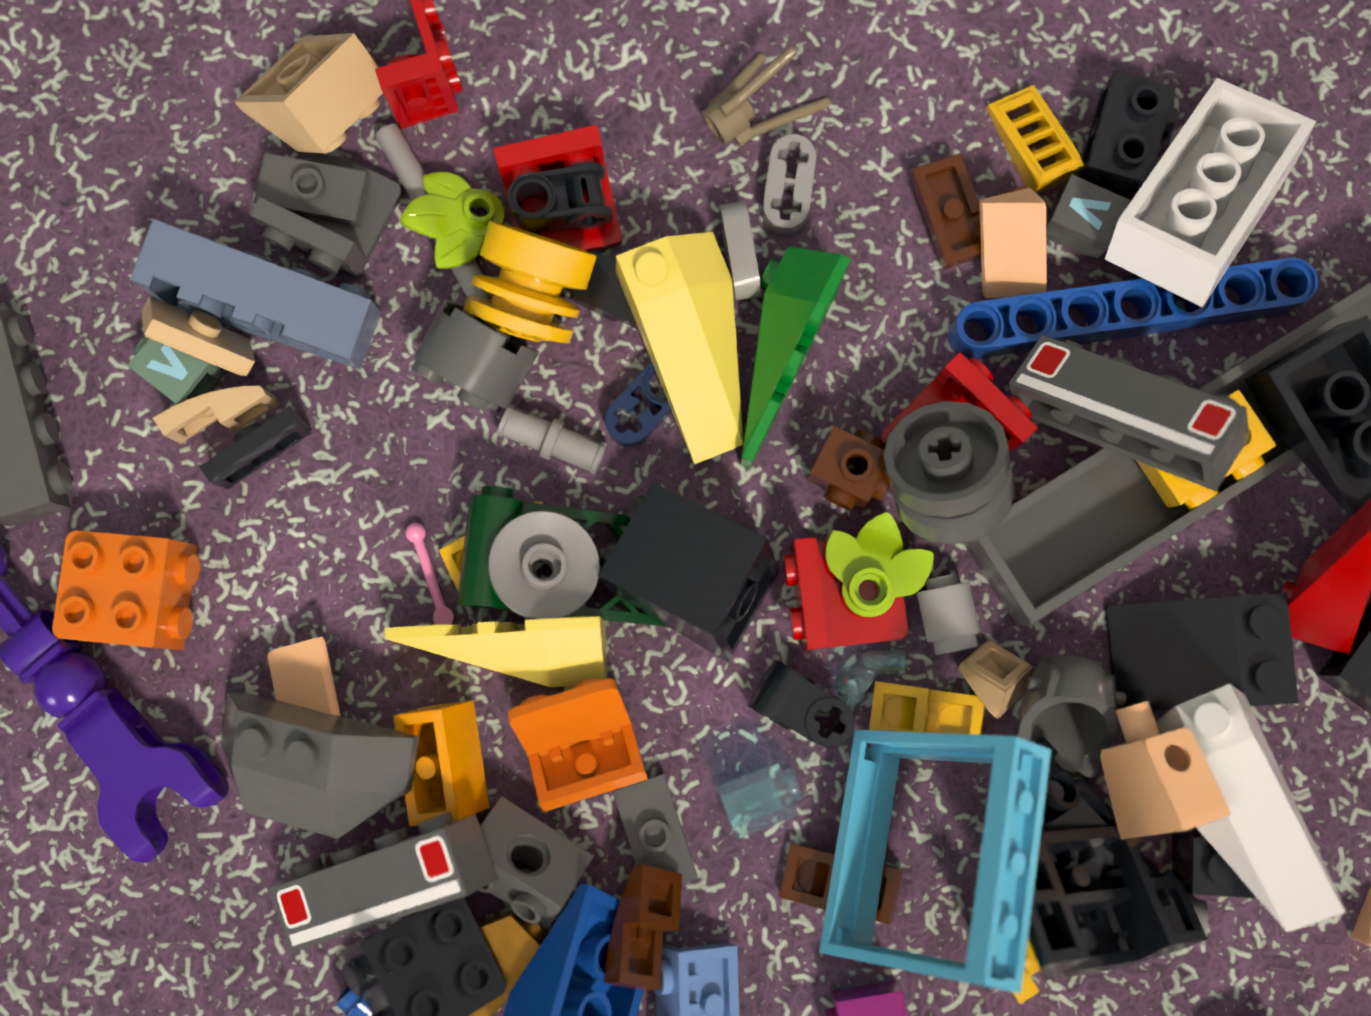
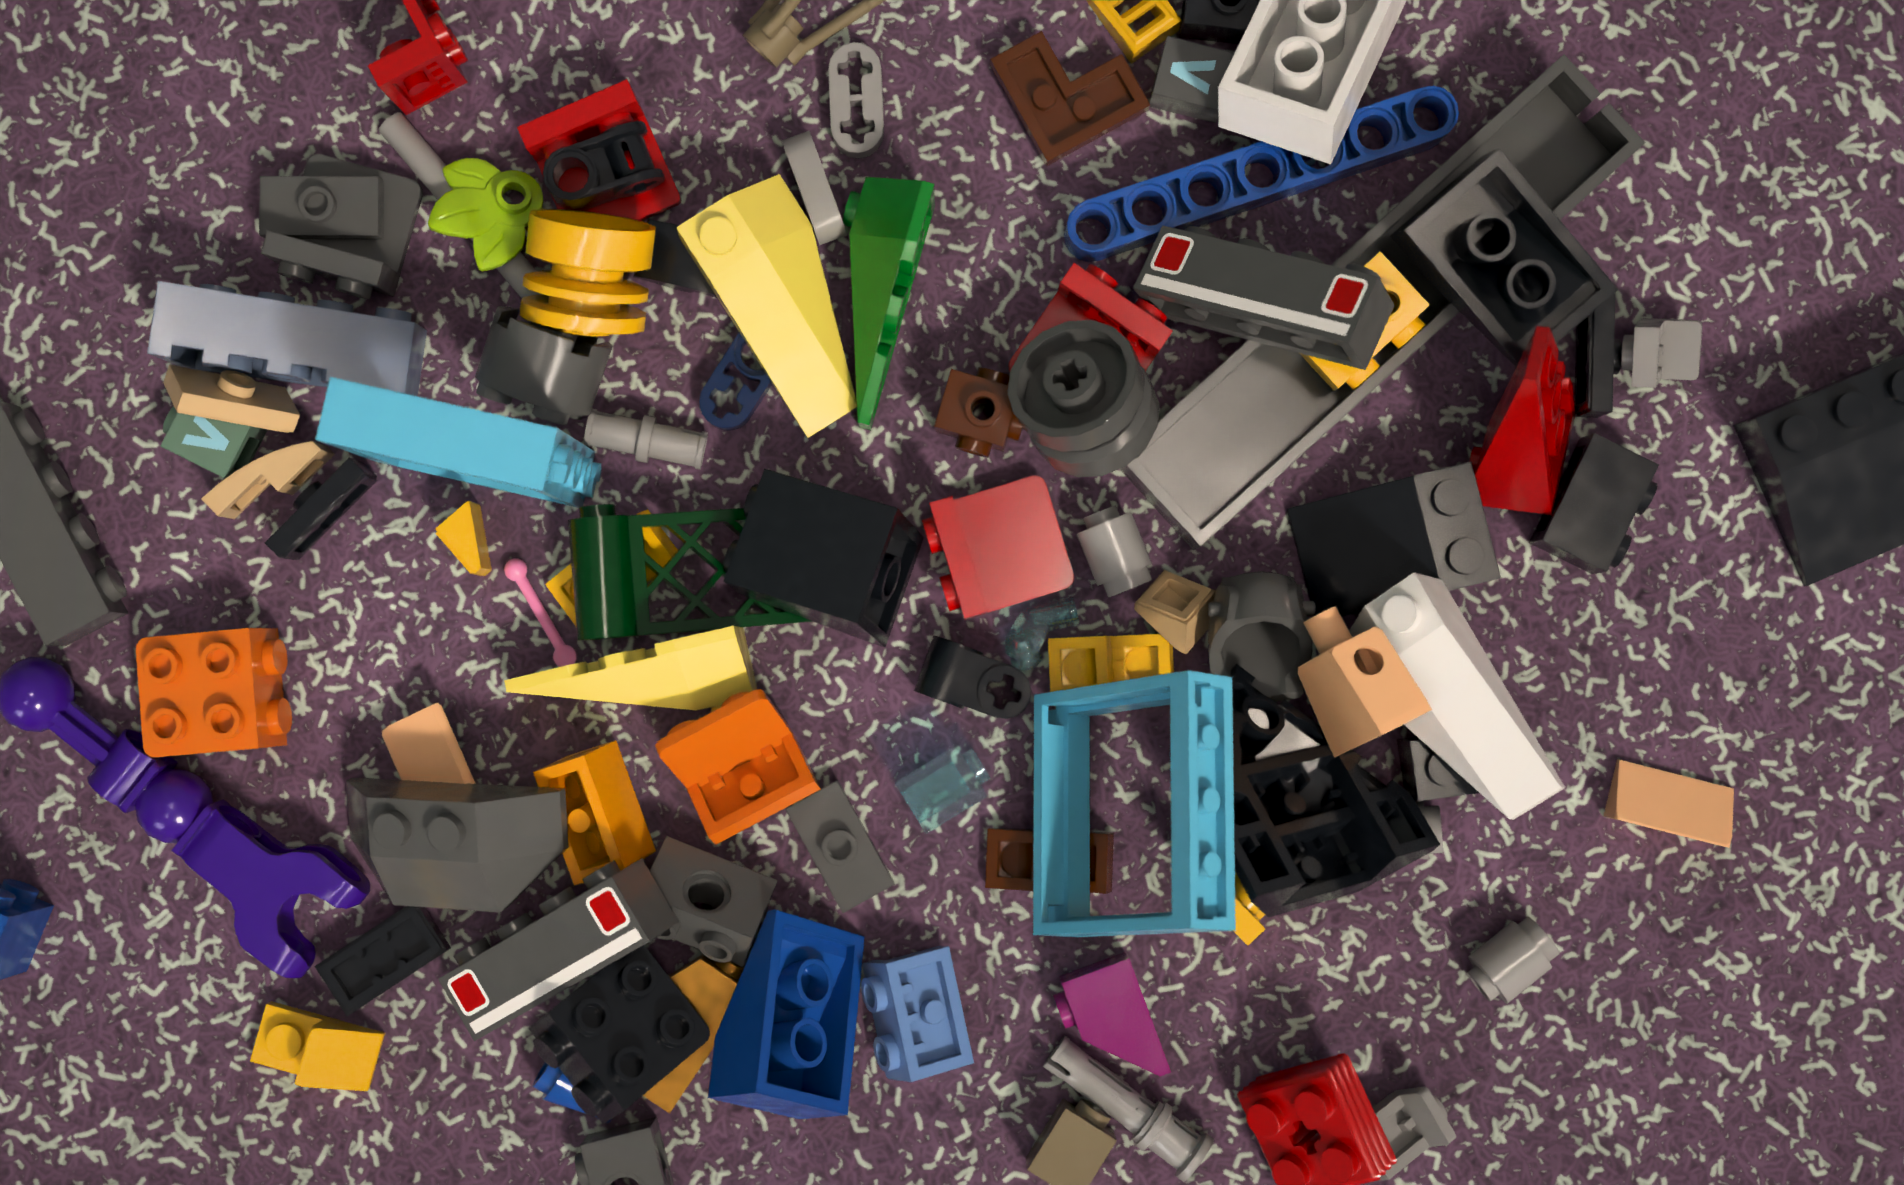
camera: 15 degrees left, 5 degrees up
(149, 930) = (317, 1048): none -> yellow slope
(225, 858) = (382, 957): none -> black plate
(315, 92) = (301, 94): tan slope -> none
(378, 496) = (466, 538): none -> yellow slope
(383, 405) = (457, 442): none -> medium azure window
(550, 540) = (668, 553): light grey dish -> none
(636, 940) = (842, 929): reddish brown slope -> none
(878, 558) = (1027, 505): lime plate -> none
(1013, 244) = (1115, 128): light nougat slope -> none

